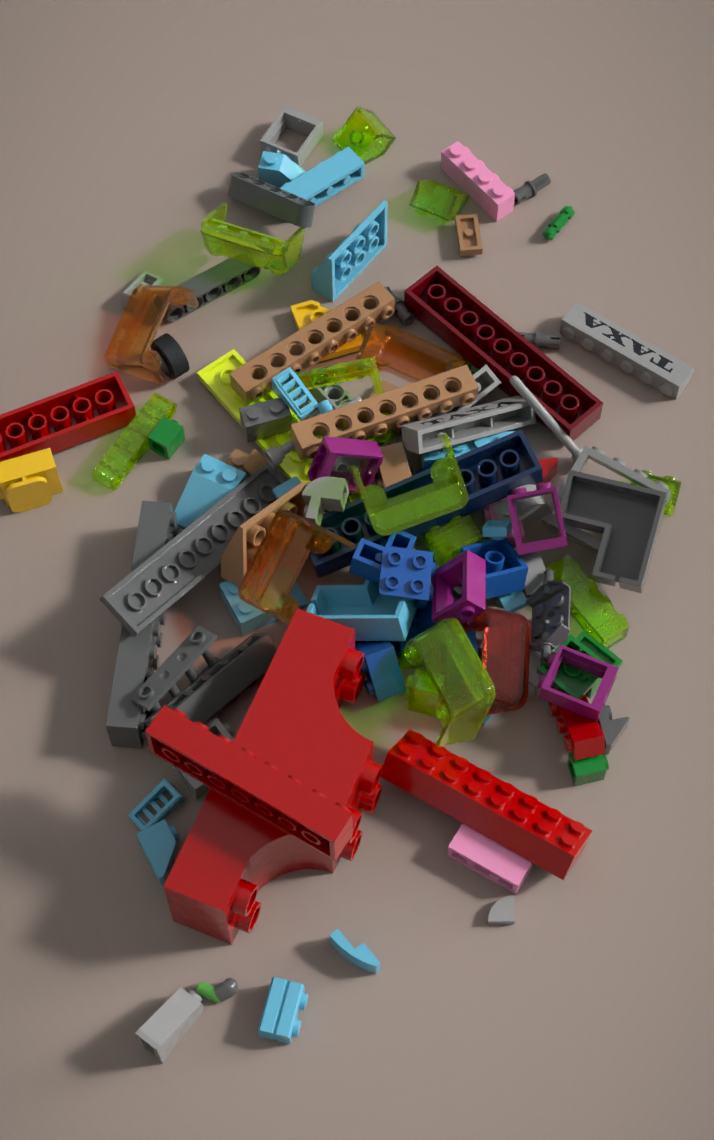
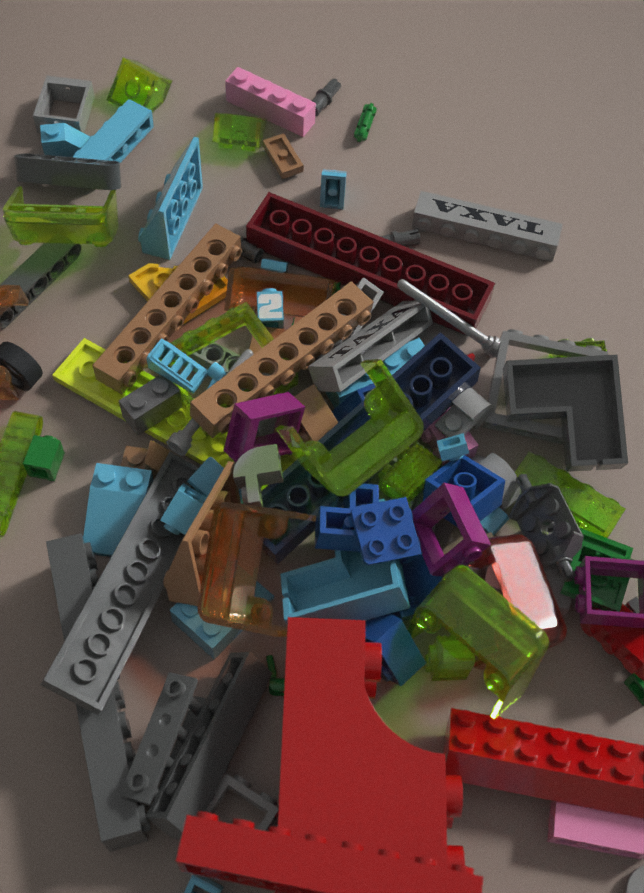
camera: 25 degrees left, 0 degrees up
(254, 505) = (183, 510): none -> medium azure slope
(399, 368) = (270, 308): none -> brick
(420, 332) = (274, 265): none -> medium azure tile
(499, 277) = (333, 189): none -> medium azure slope
(543, 544) = (509, 449): magenta window -> none

